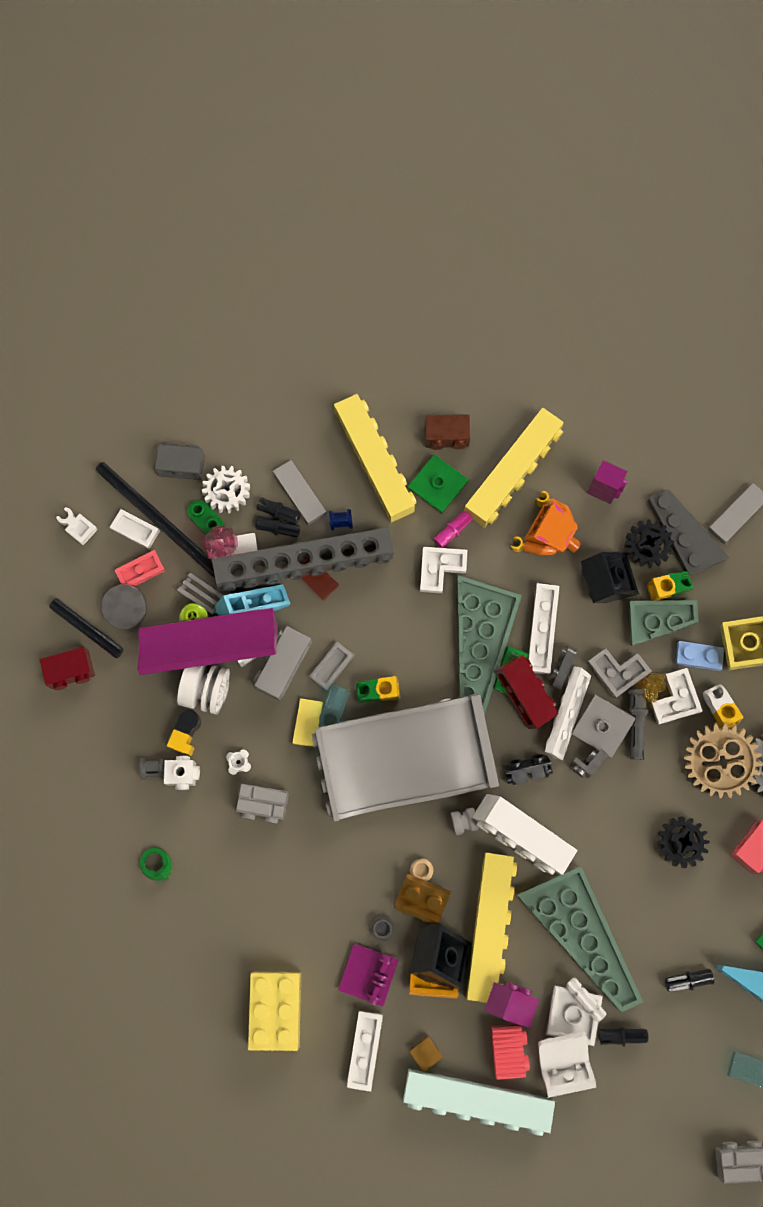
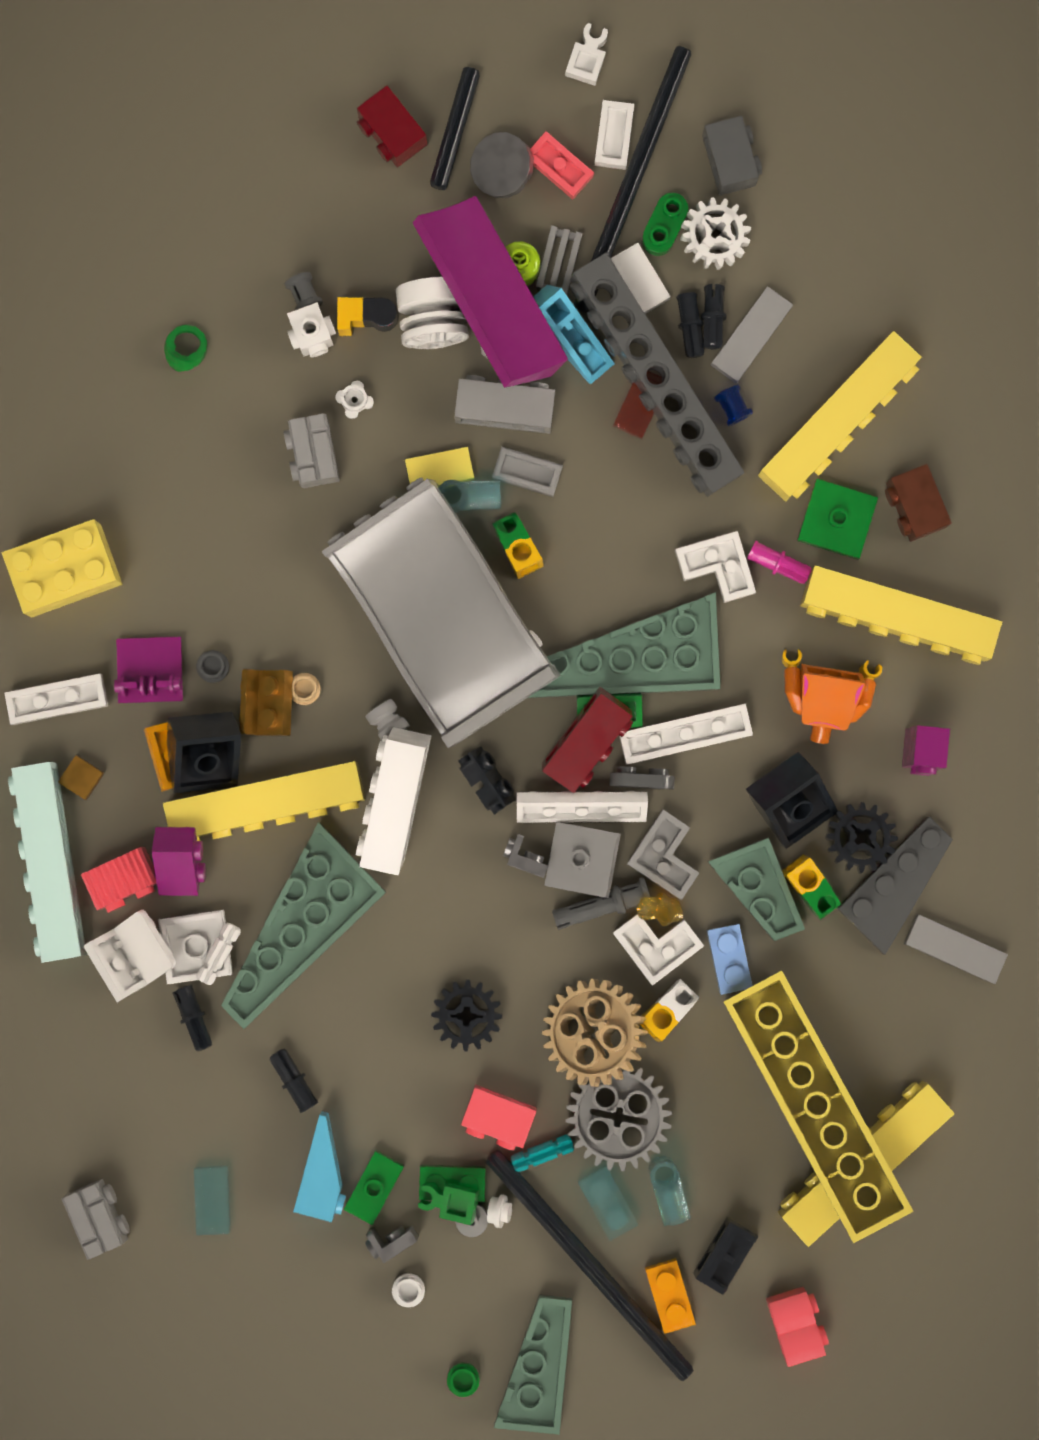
camera: 65 degrees right, 10 degrees up
(215, 547) = (634, 255): clear pink brick -> none

